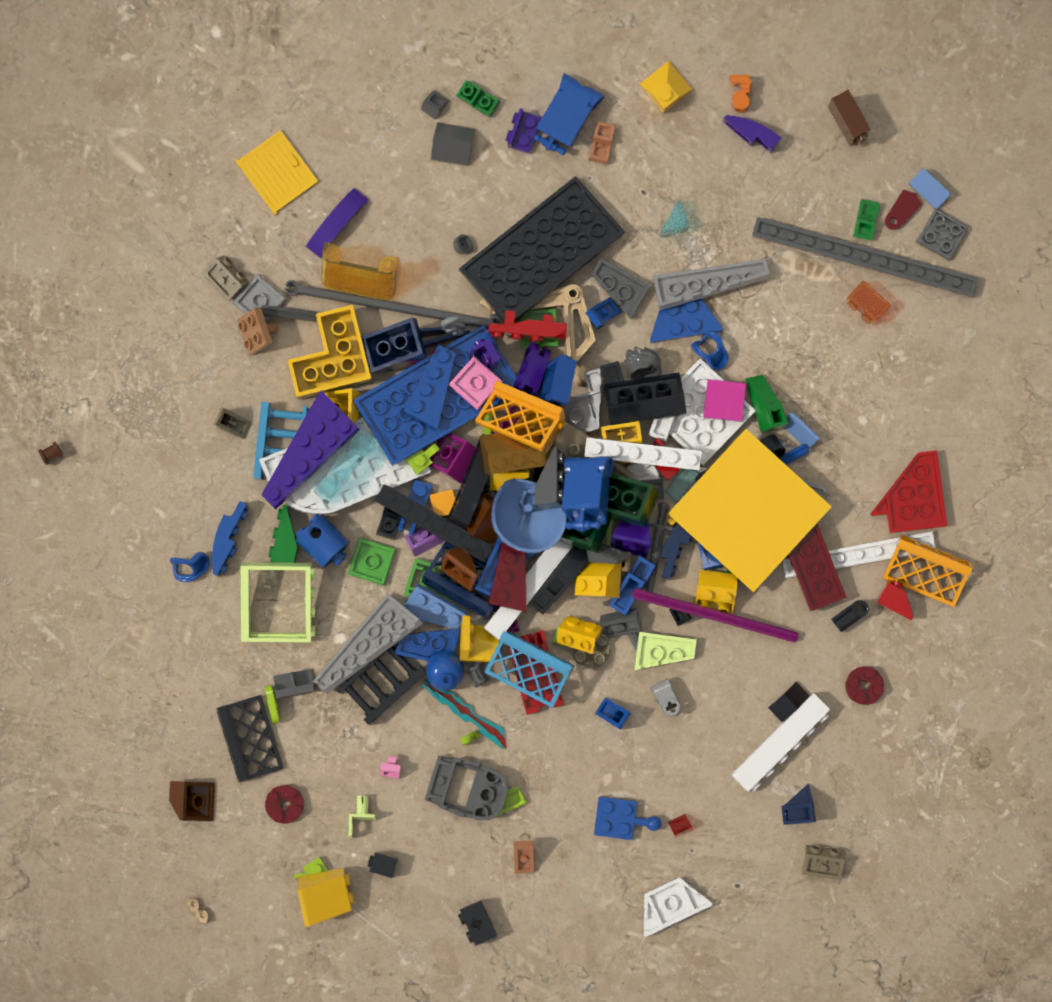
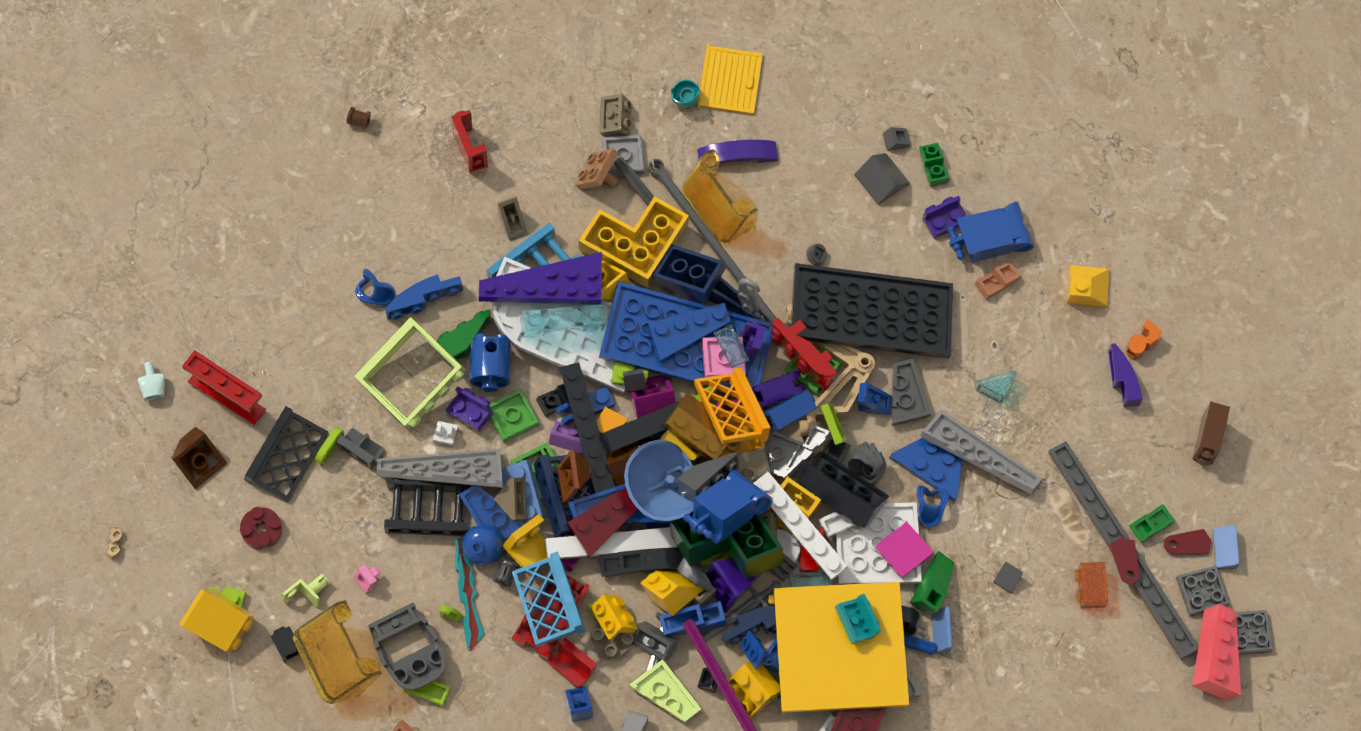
camera: 40 degrees right, 15 degrees down
(108, 780) = (151, 385): none -> light aqua piece
(162, 407) = (475, 157): none -> red panel
(164, 737) = (224, 387): none -> red fence
(258, 213) = (685, 93): none -> teal hair
(340, 587) = (470, 409): none -> dark purple bracket
(340, 618) = (445, 433): none -> white tile
(425, 846) = (332, 657): none -> clear yellow windscreen
(432, 459) = (634, 380): none -> dark grey slope
(435, 622) = (513, 498): none -> dark tan slope
(475, 371) = (731, 346): none -> clear light blue tile
(582, 692) = (572, 663): none -> red panel
(595, 359) = (833, 423): none -> lime tile
(694, 567) = (755, 651): none -> blue hinge
(745, 482) = (858, 619): none -> teal bracket
(808, 351) = (1008, 577): none -> dark grey slope
(874, 263) = (1126, 559): none -> dark red piece
(994, 271) = (1218, 654): none -> coral wedge
(997, 234) = (1253, 632): none -> flat silver tile

